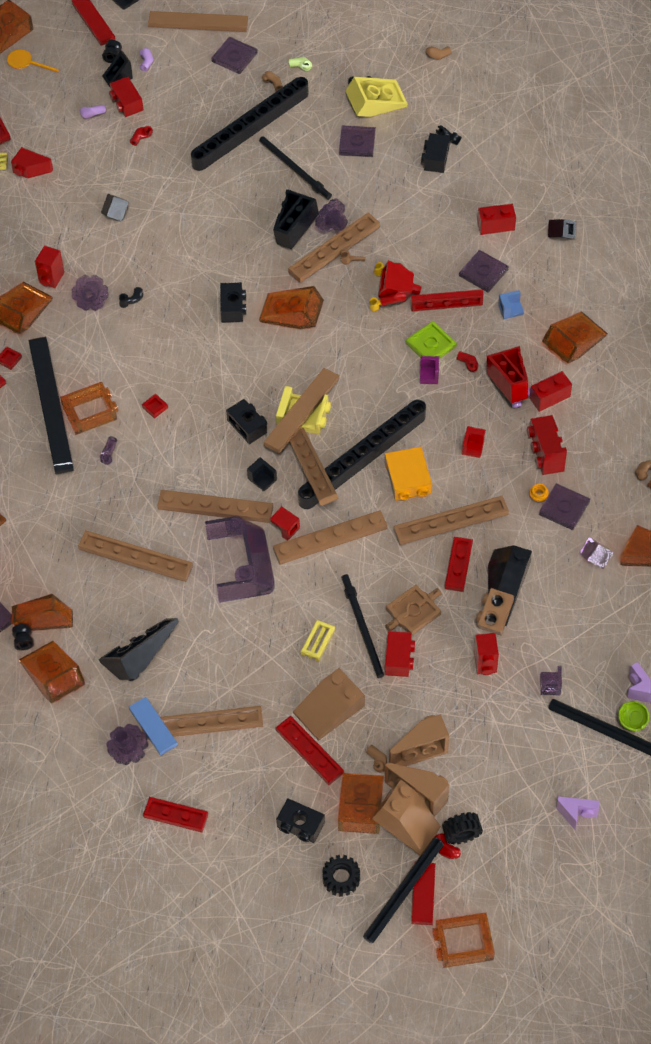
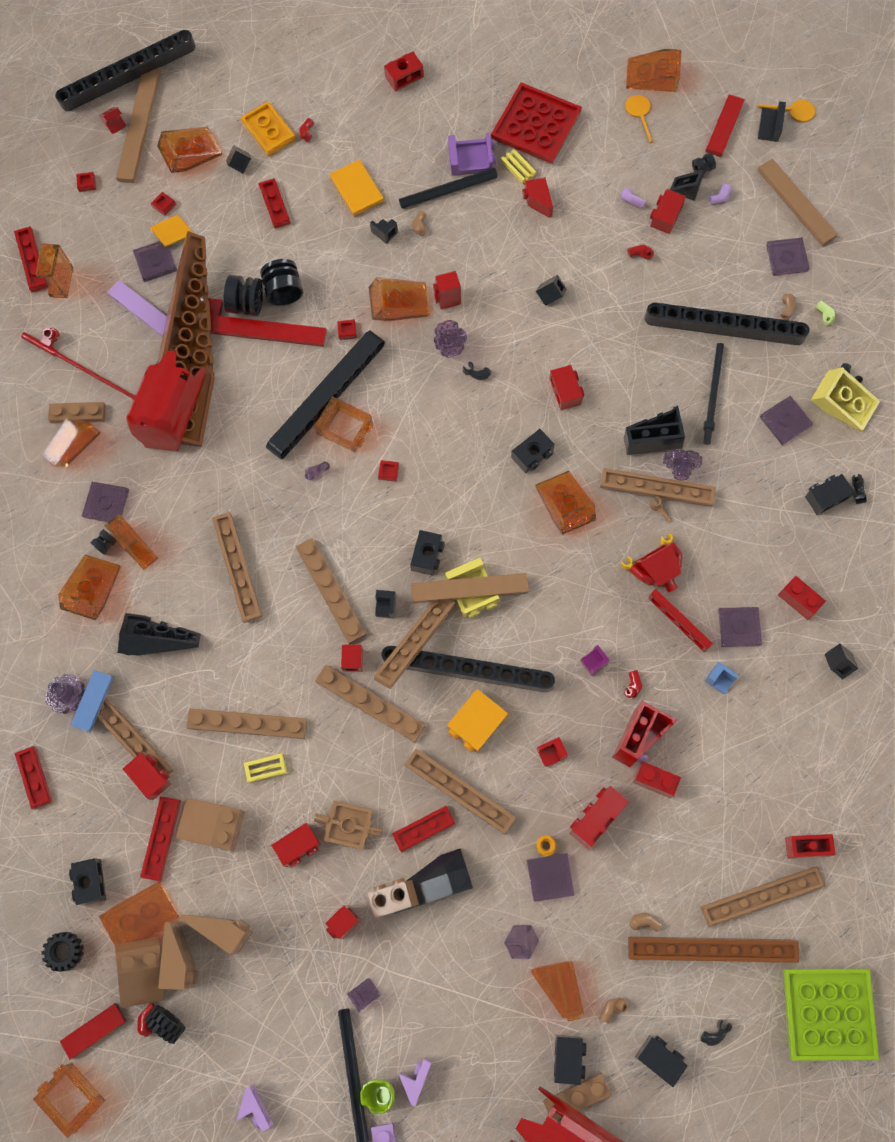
camera: 55 degrees right, 15 degrees up
(202, 249) = (566, 387): none -> red brick
(250, 579) = (302, 660): clear purple windscreen -> none
(253, 720) = (147, 775): none -> red brick
(270, 631) = (246, 723): none -> medium nougat plate
(351, 594) = (328, 760): black bar -> none
(380, 758) = (189, 903): medium nougat arm -> none
(403, 890) = (80, 1014): black axle -> none
(431, 341) = (627, 639): lime tile -> none
(573, 336) = (733, 757): clear orange slope -> none

